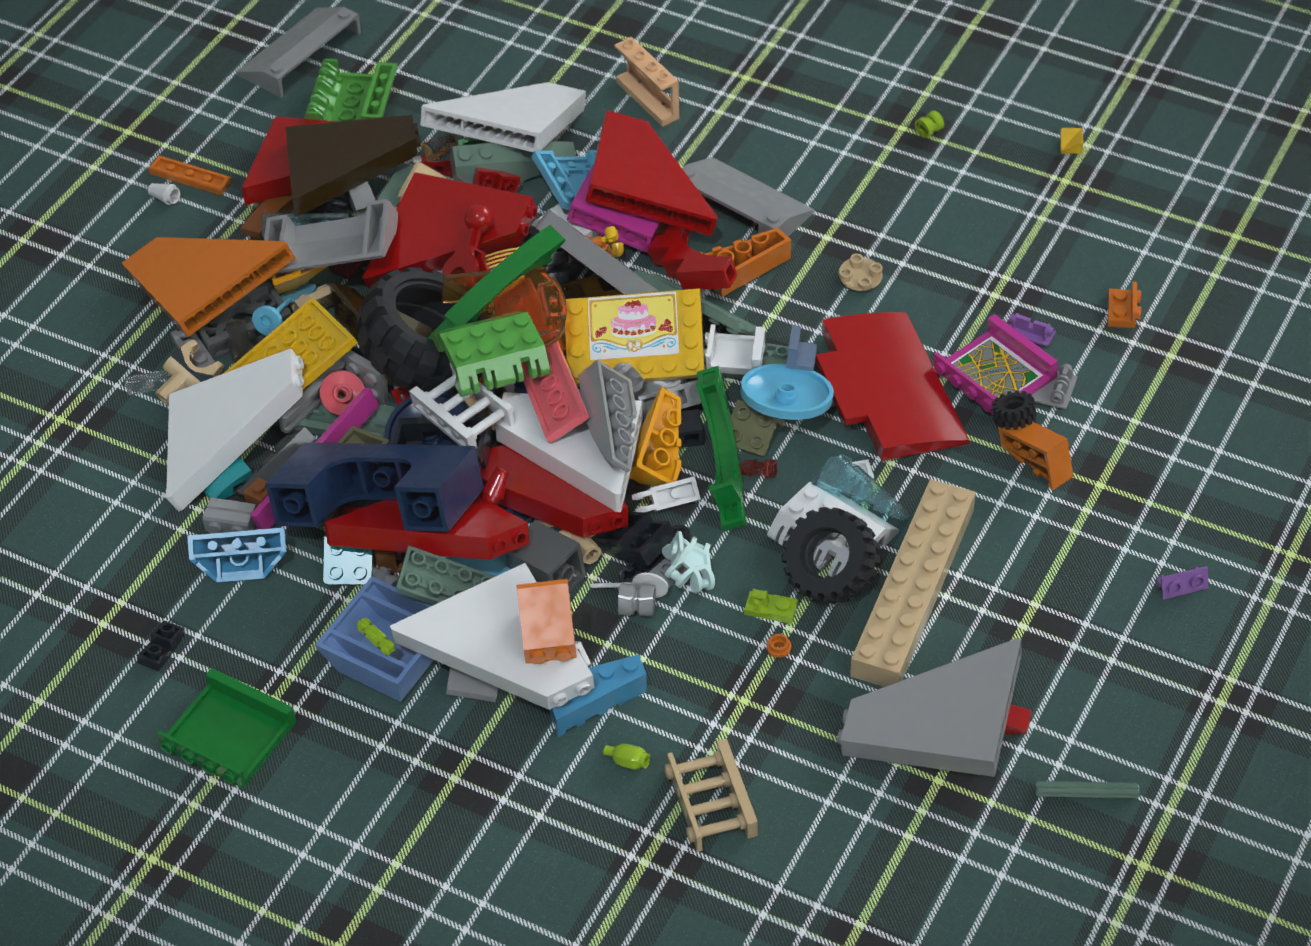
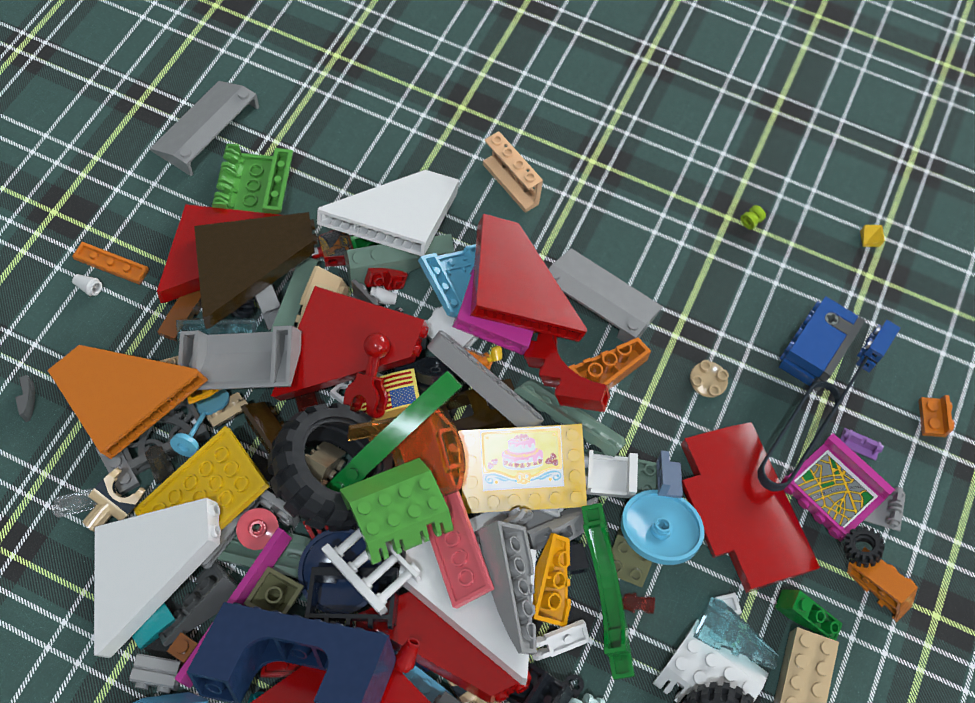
camera: 10 degrees left, 15 degrees up
(97, 290) = (26, 402): none -> dark grey slope
(941, 467) = (808, 613): none -> green slope
(985, 249) = (816, 354): none -> blue piece

